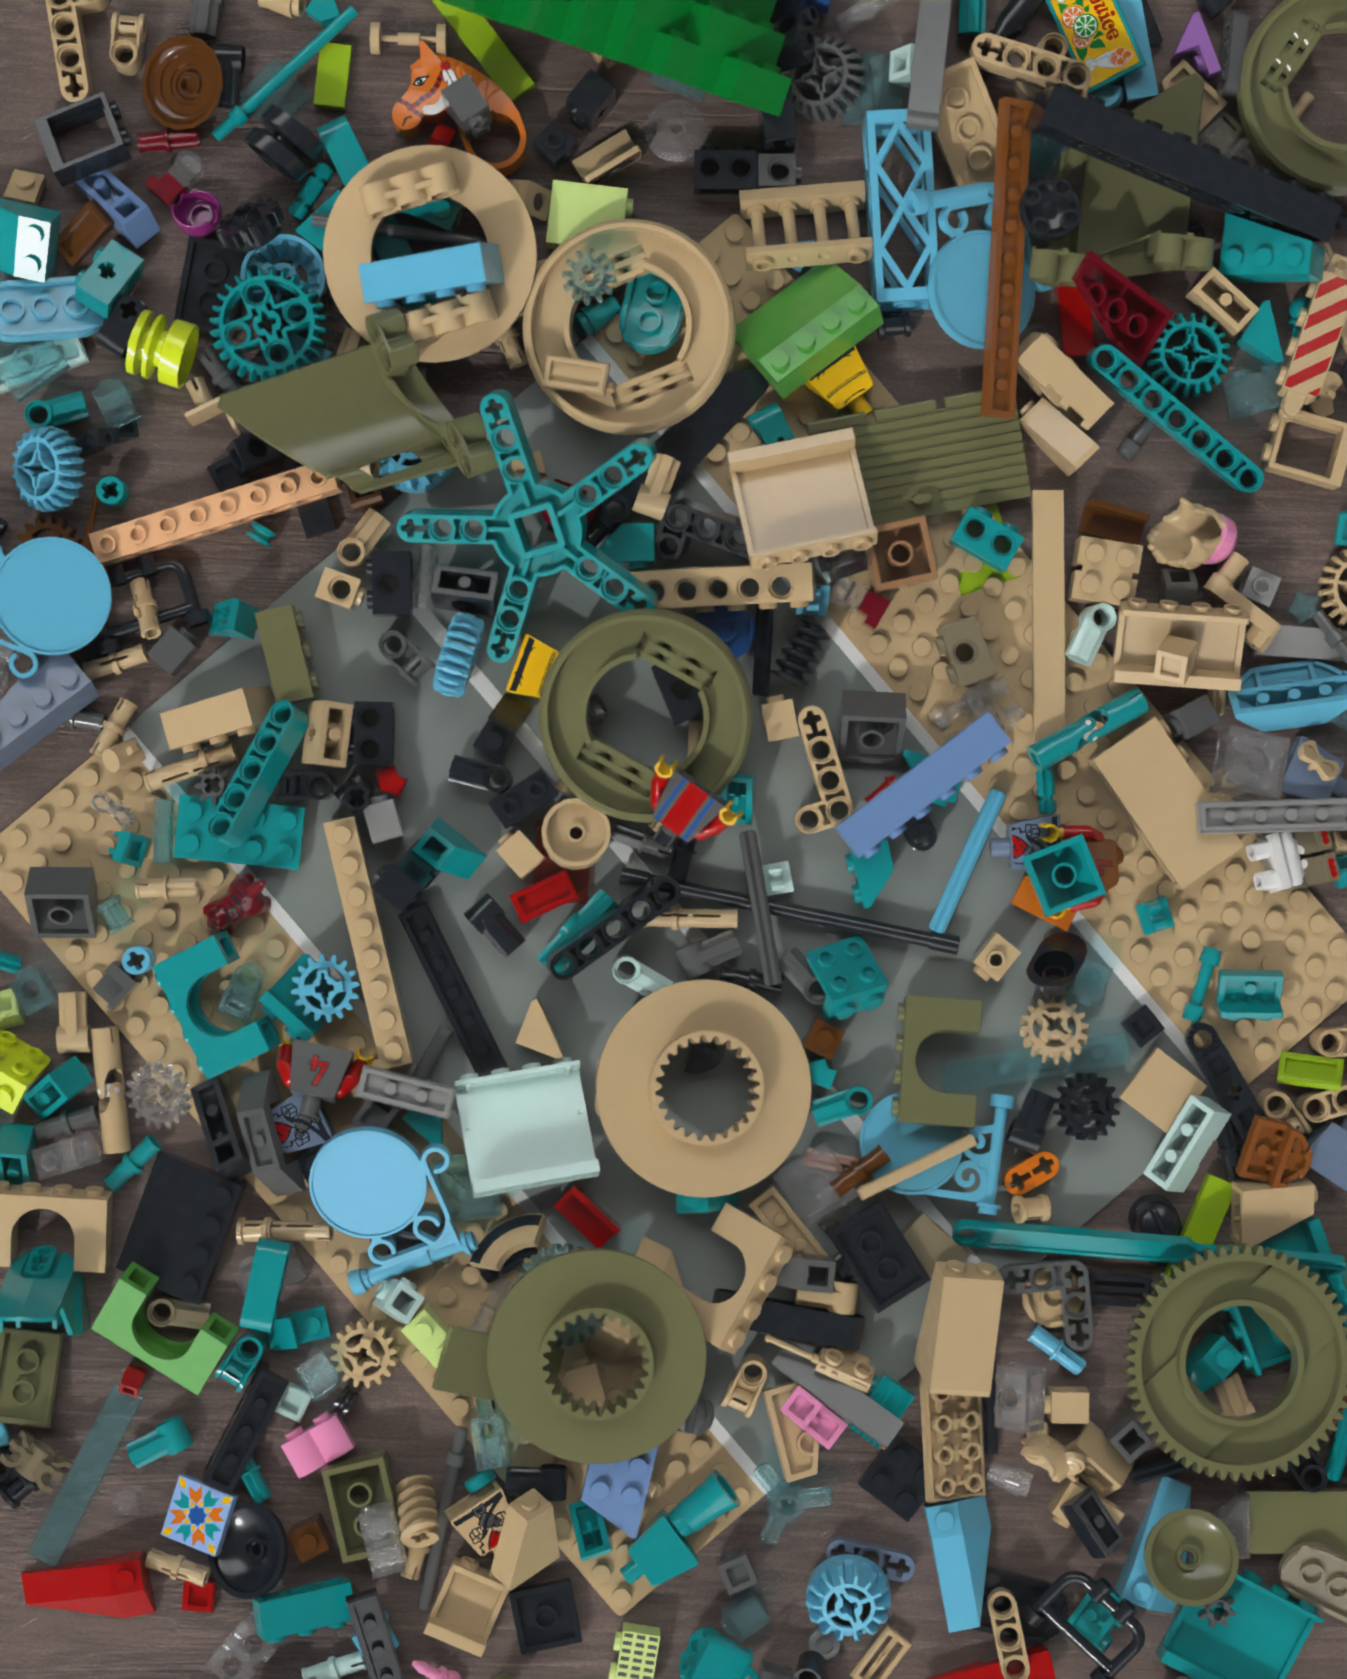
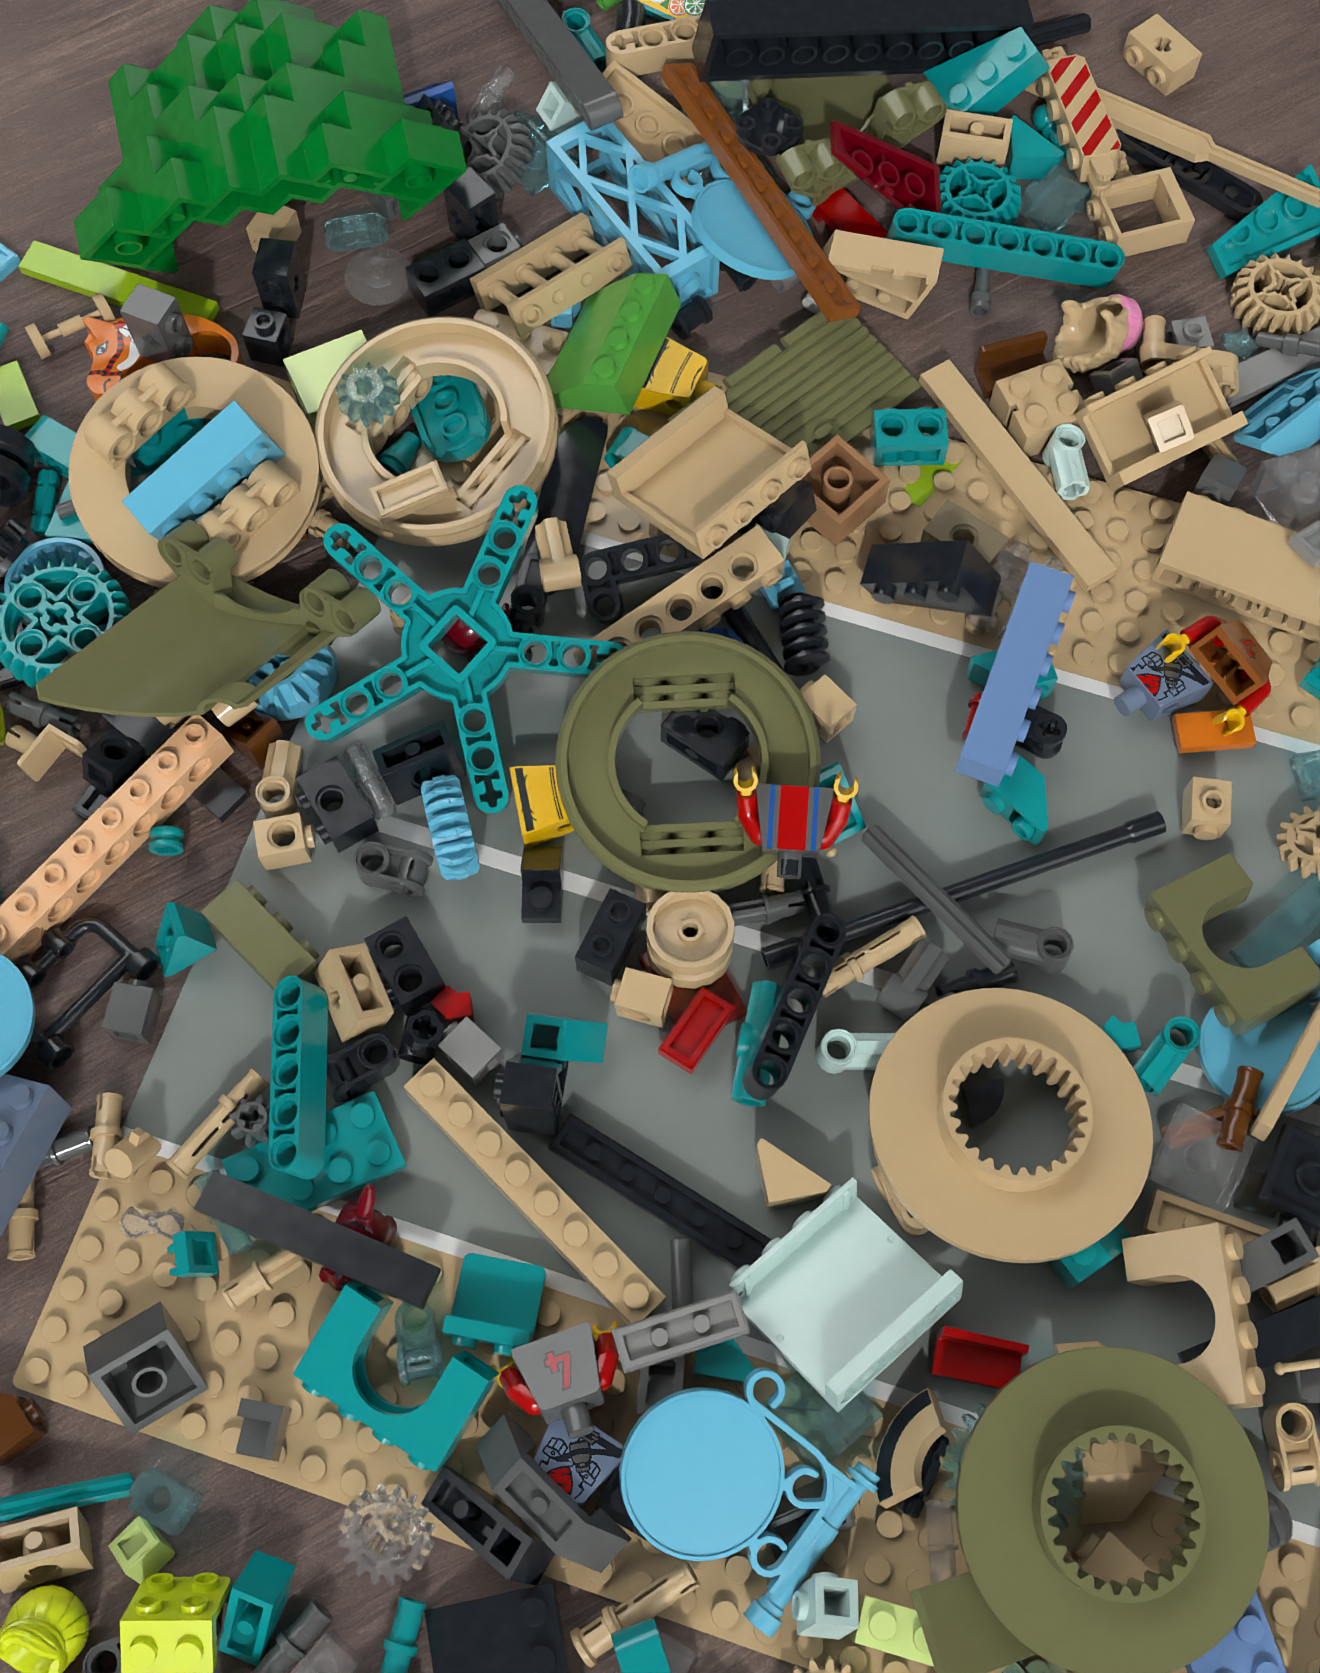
camera: 30 degrees left, 20 degrees down
(26, 762) = (22, 1228): none -> tan pin
(73, 1028) = (239, 1519): tan piece -> none
(112, 1104) = (330, 1577): tan piece -> none
(115, 915) = (216, 1344): clear light blue bush -> none
(116, 662) = (75, 1060): tan pin -> none
(129, 955) = (261, 1386): medium azure bush -> none
(145, 608) = (76, 983): tan pin -> none
(212, 891) = (318, 1240): none -> black tile
(217, 718) = (217, 1048): tan wedge -> none
(311, 989) = (498, 1287): medium azure gear -> none
(477, 774) = (544, 941): black piece -> none
(491, 920) = (652, 1088): black piece -> none
(607, 159) = (329, 321): tan panel -> none
(631, 545) = (564, 619): teal slope -> none
(777, 878) = (934, 862): light aqua tile -> none
(818, 768) = (874, 695): tan beam -> none
(823, 1038) = (1096, 993): reddish brown brick -> none
(848, 978) = (1081, 911): teal bracket -> none
(860, 599) = (827, 556): leg -> none
(872, 727) = (922, 662): dark grey slope -> none
(917, 670) = (932, 576): none -> black wedge
(967, 861) = (1107, 736): medium azure axle -> none
(1046, 790) = (1127, 618): teal axle -> none
(1056, 435) = (911, 319): tan slope -> none
(1057, 963) = (1274, 776): black piece -> none
(1063, 875) = (1220, 670): teal slope -> none
(1083, 731) = (1131, 542): teal piece -> none

